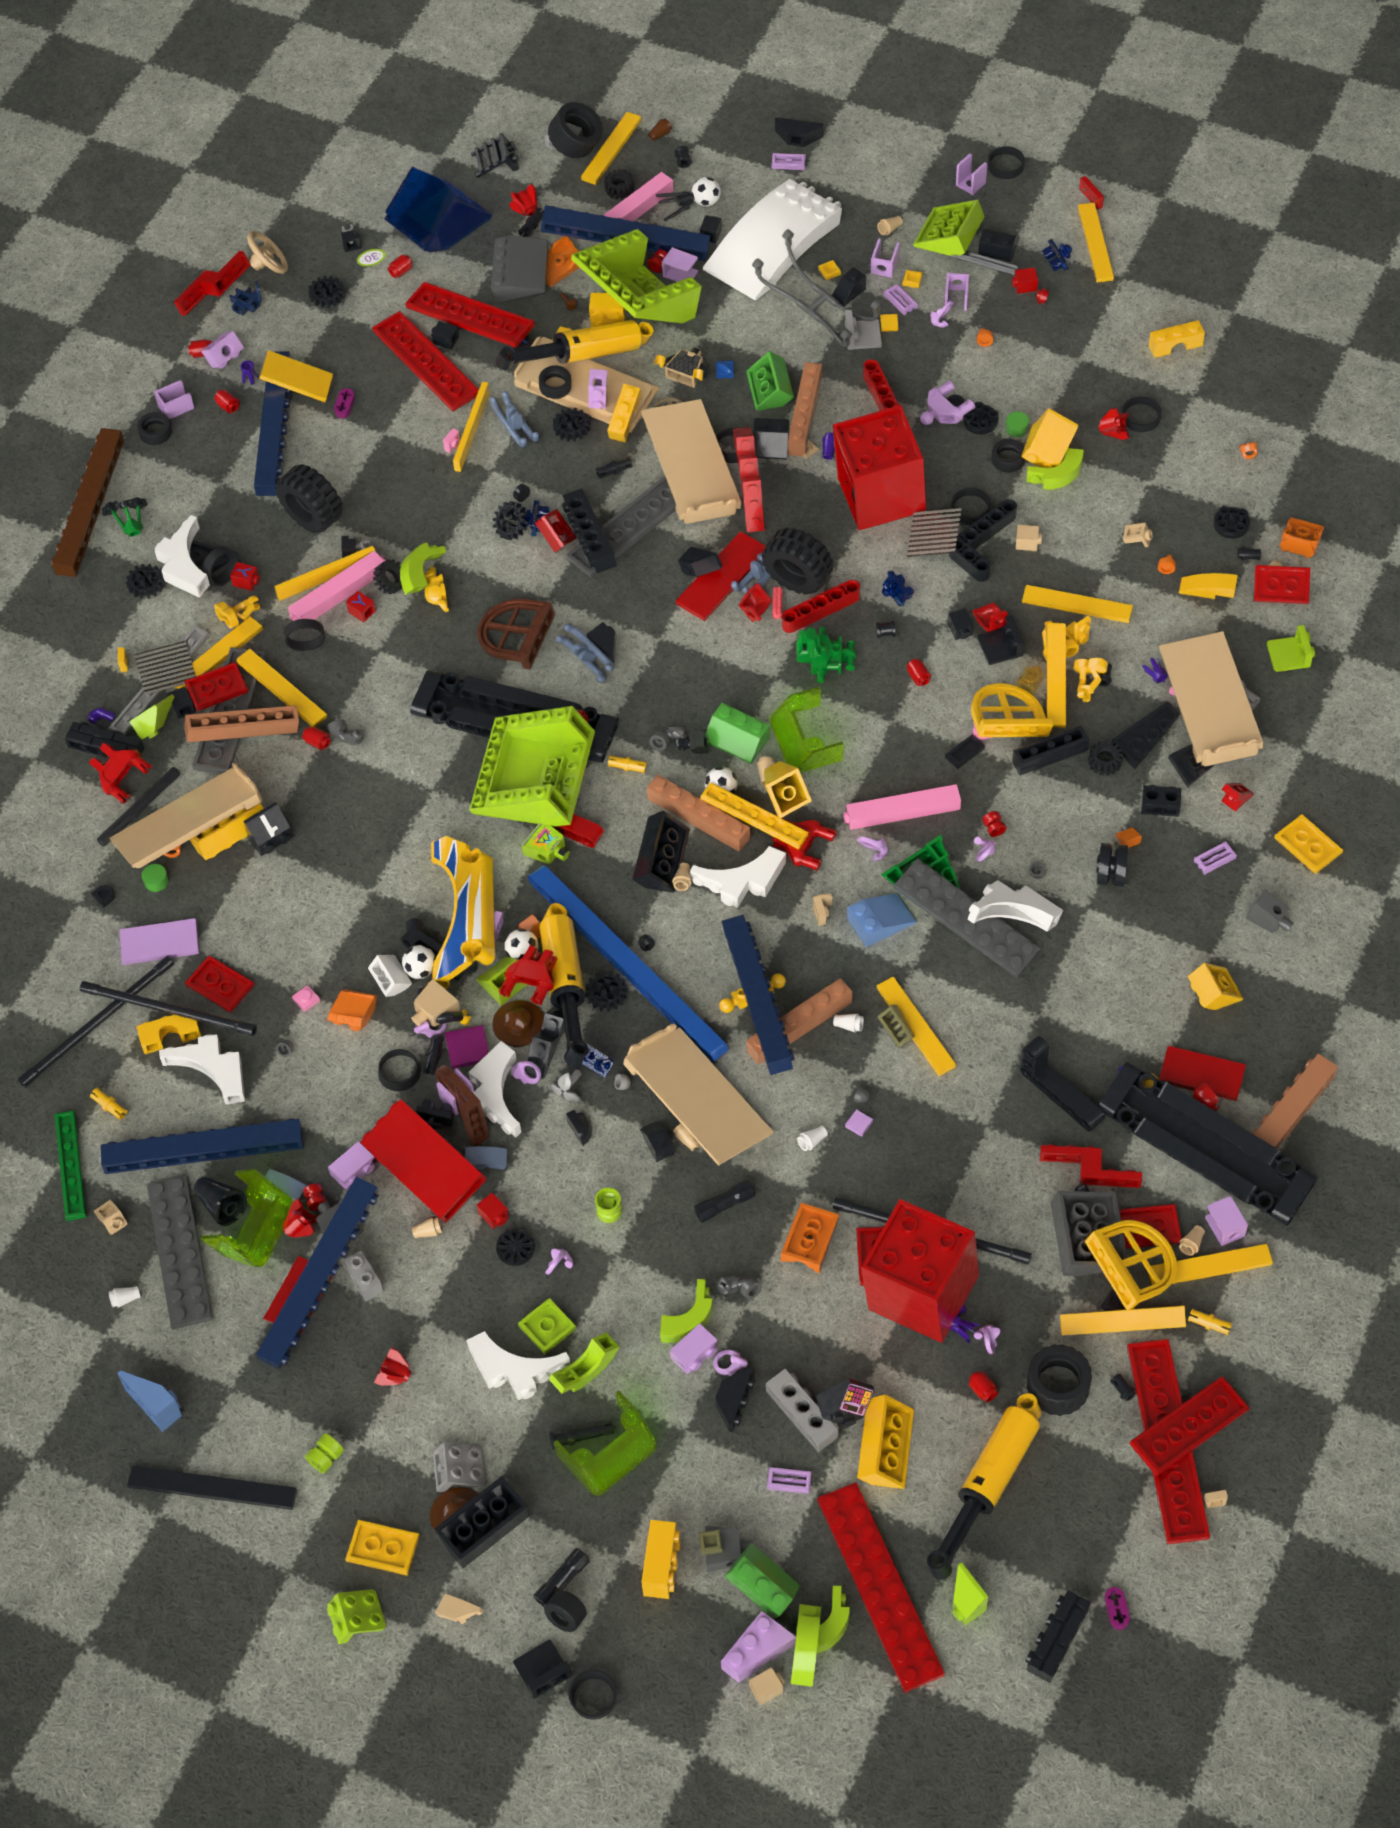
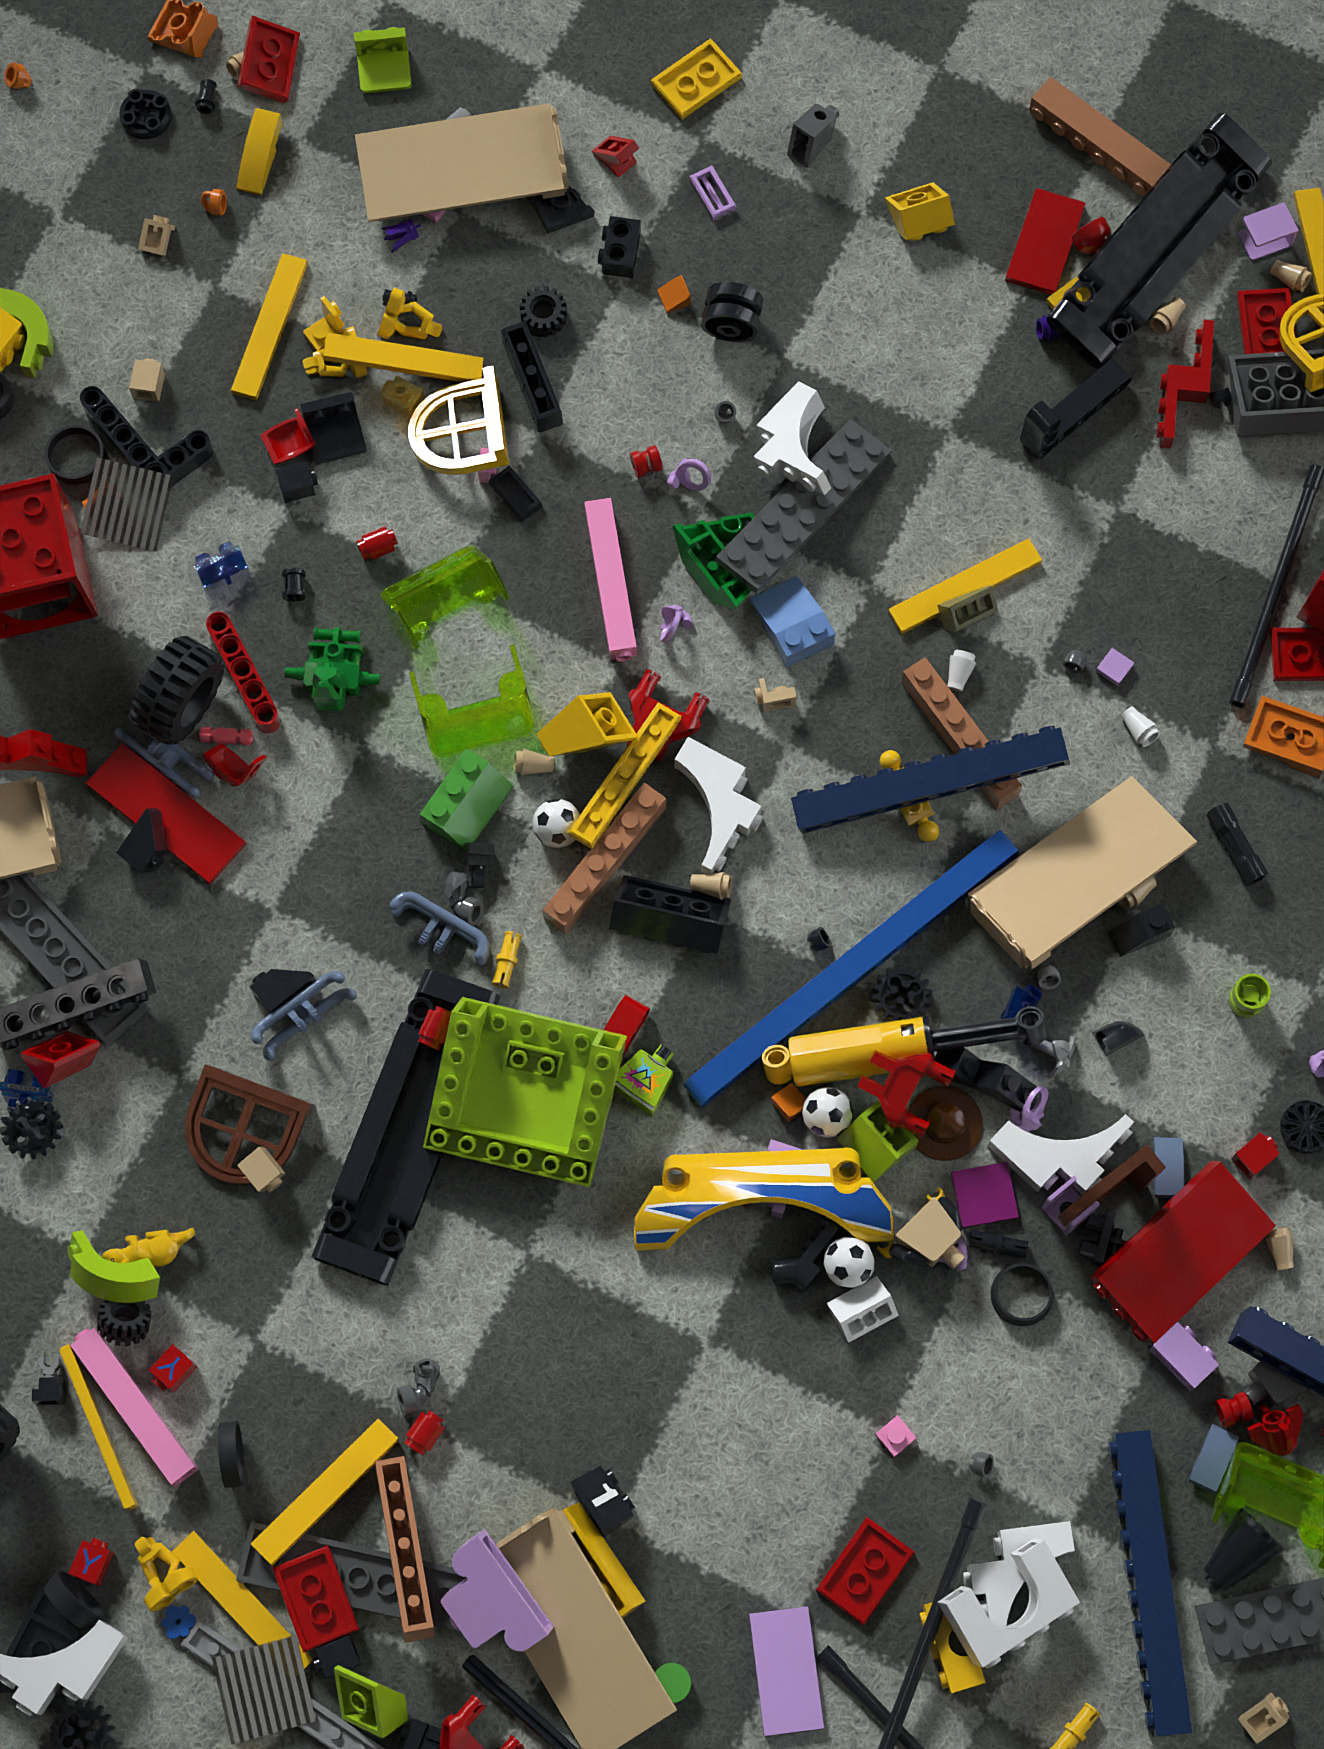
camera: 90 degrees left, 15 degrees up
(166, 1036) = (1048, 1599): none -> white arch
(208, 623) = (173, 1615): none -> blue plant
(208, 768) = (492, 1598): none -> lavender brick
(353, 1009) = (917, 1364): orange slope -> none
(482, 637) = (262, 1170): none -> tan brick
(650, 726) = (441, 917): none -> sand blue piece
(882, 704) = (442, 589): none -> clear neon green windscreen
(1145, 734) = (506, 257): black wing -> none
(1147, 1154) = (1165, 318): none -> tan cone

